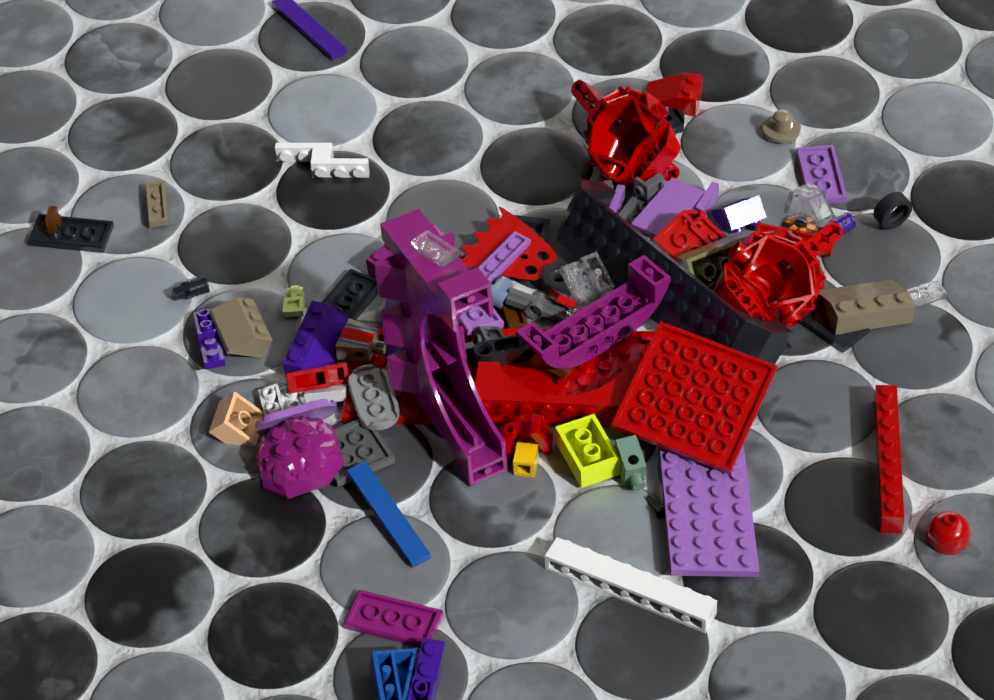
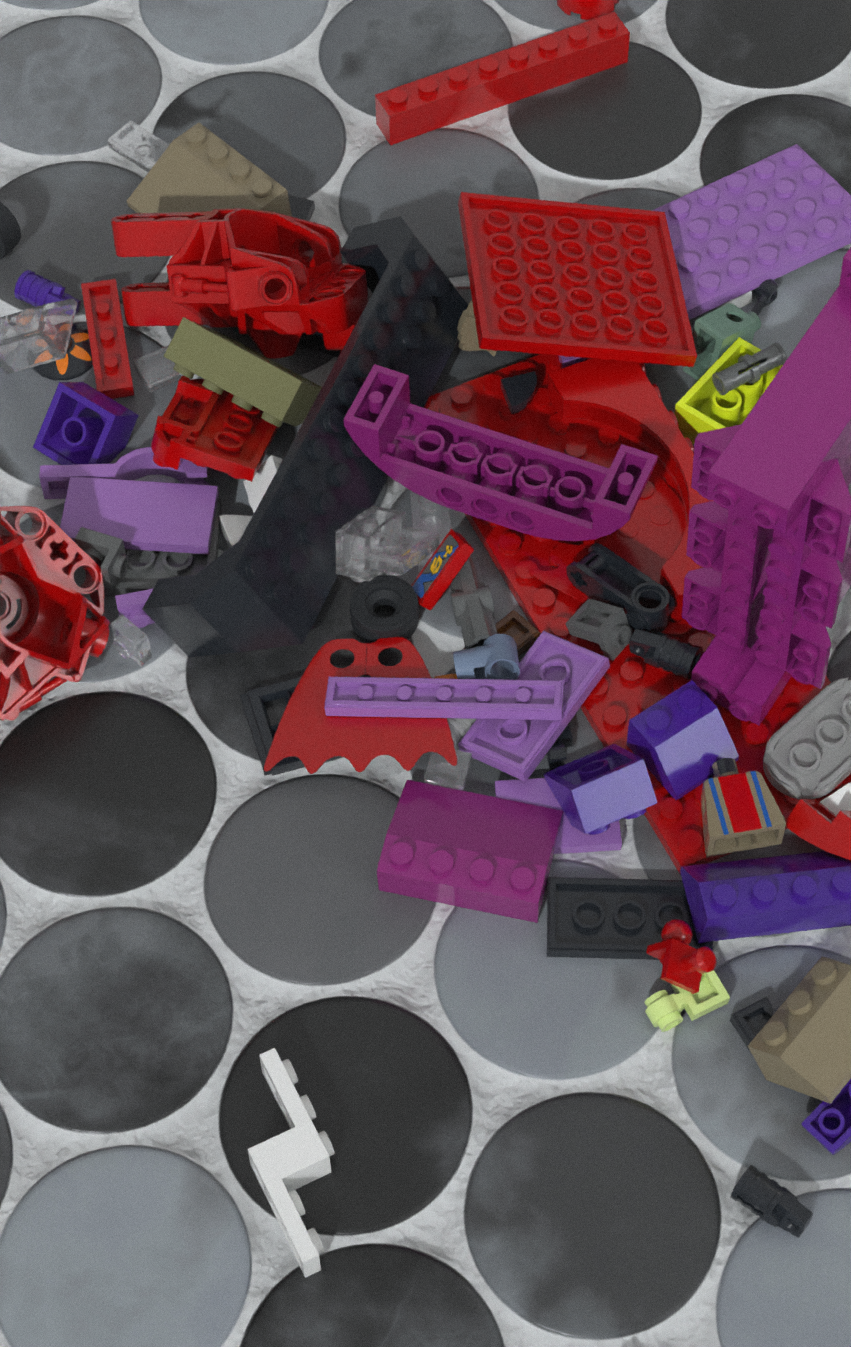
camera: 120 degrees left, 10 degrees up
(270, 321) = (752, 1019): none -> black tile
(305, 294) = (681, 962): none -> red piece
(434, 248) = (814, 372): clear plate -> none
(591, 444) = (730, 378): none -> dark grey pin

